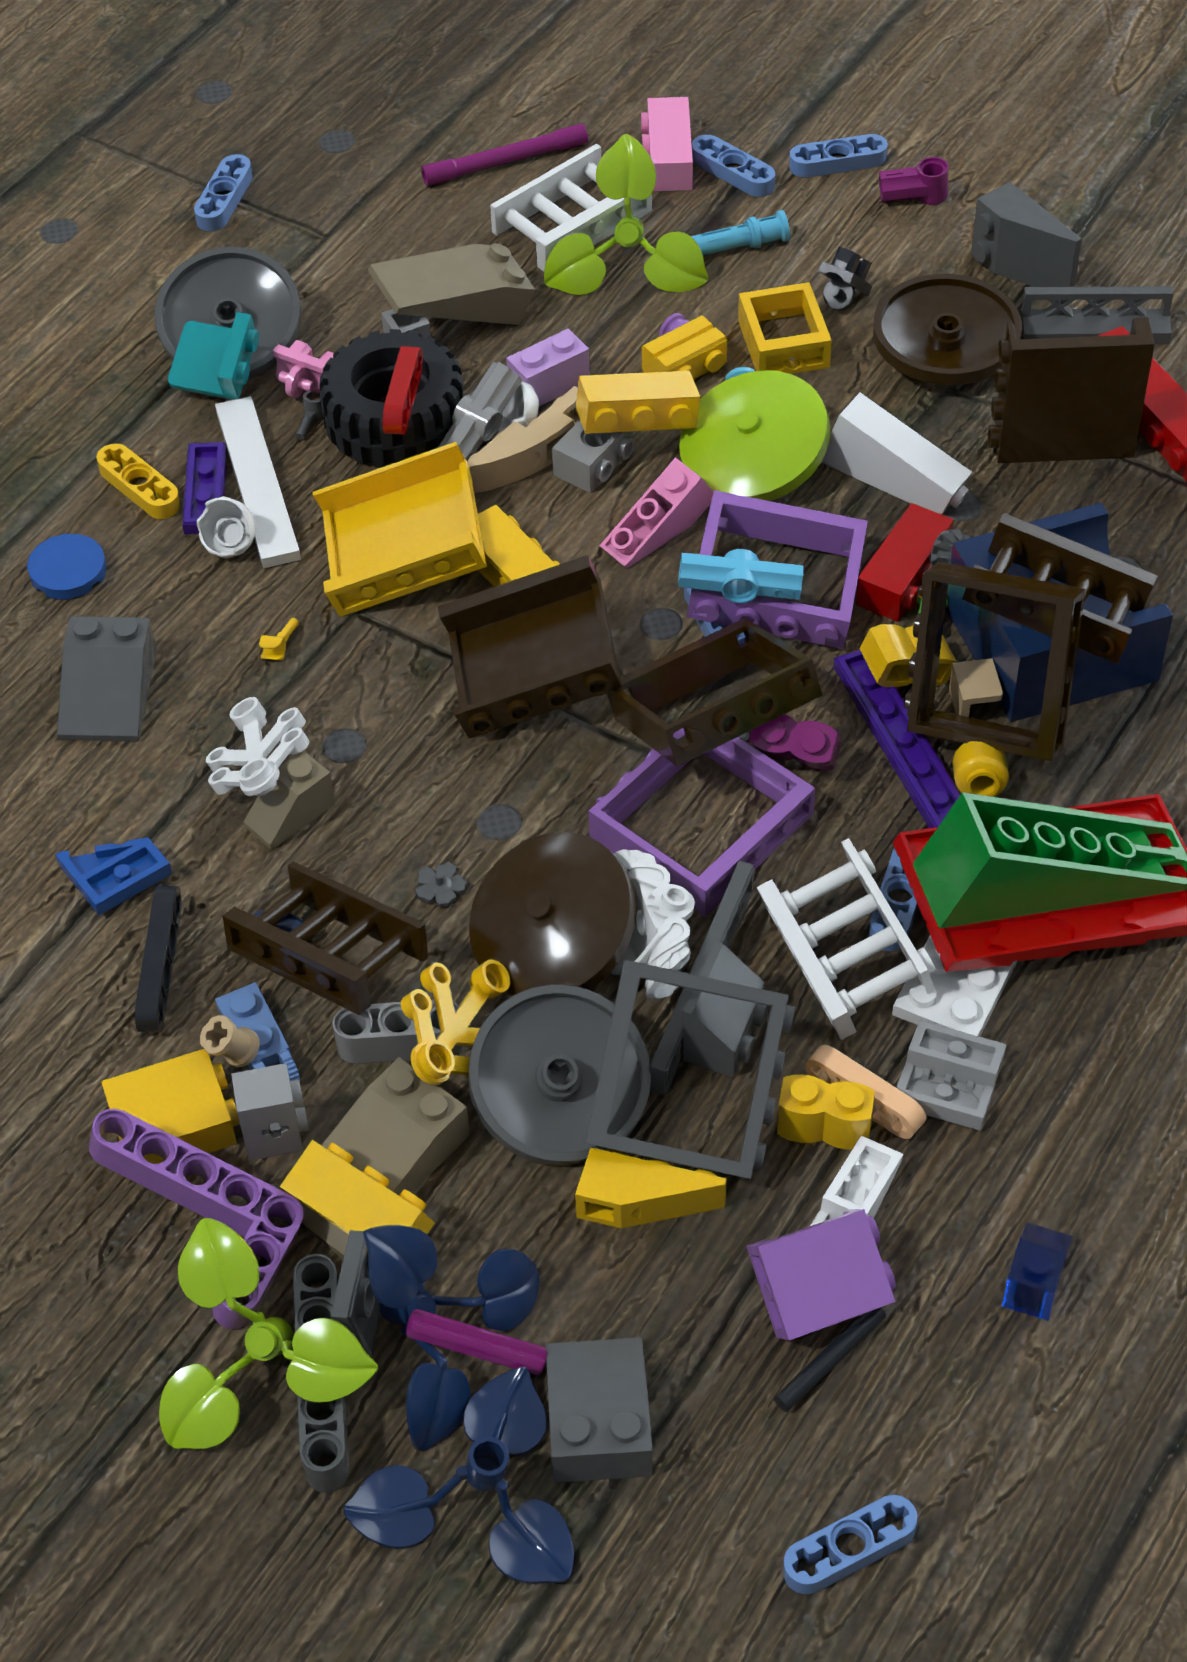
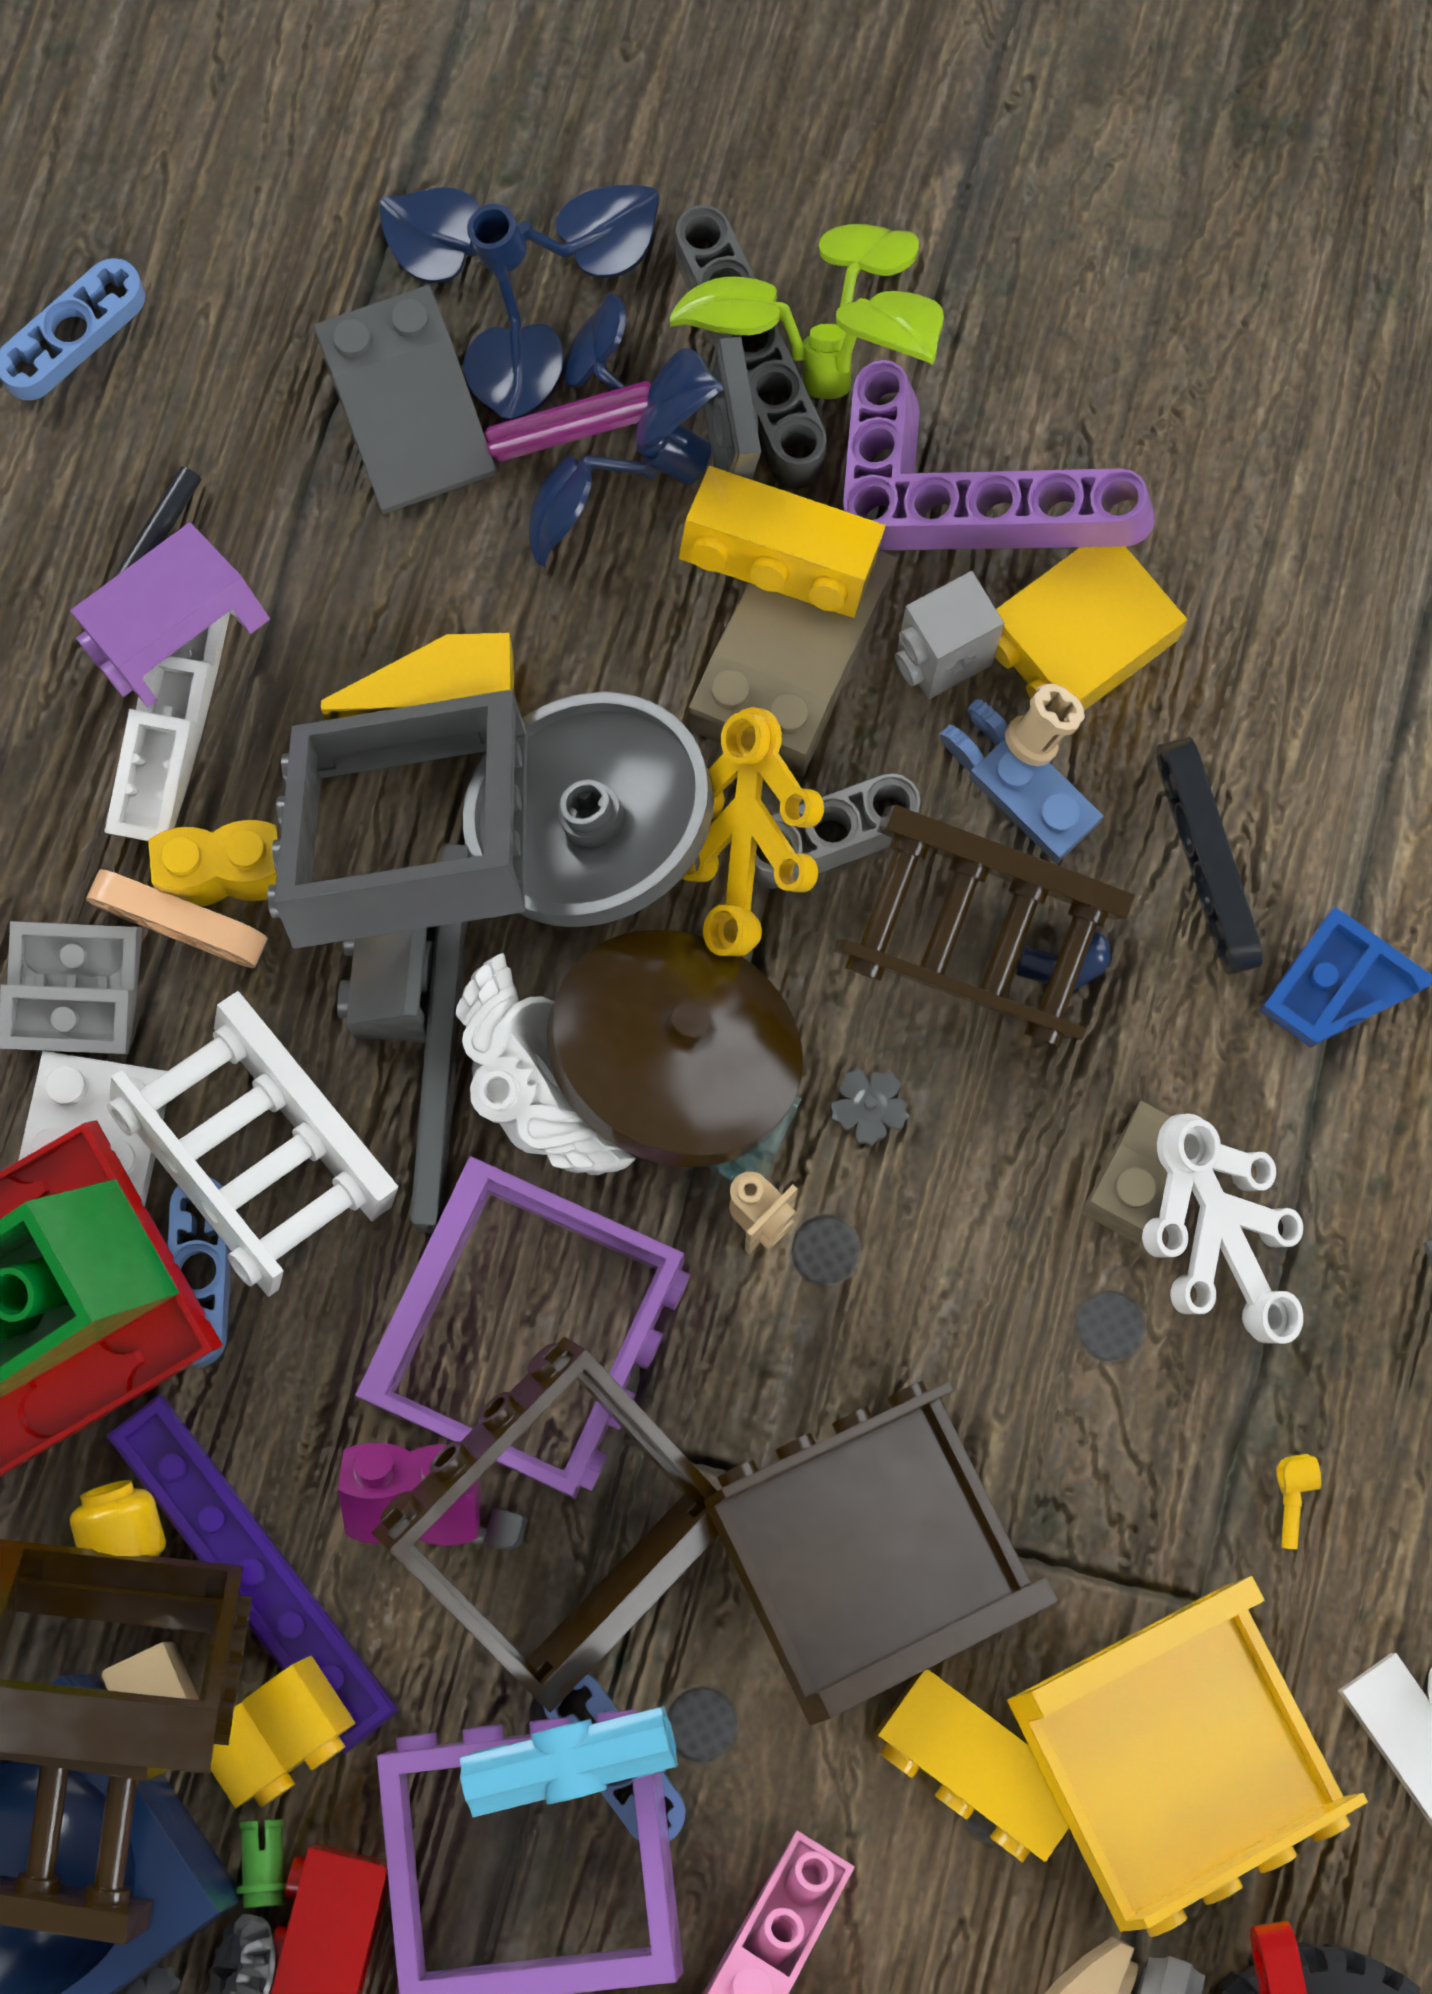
camera: 160 degrees right, 25 degrees up
(528, 812) = (761, 1209): none -> tan hinge

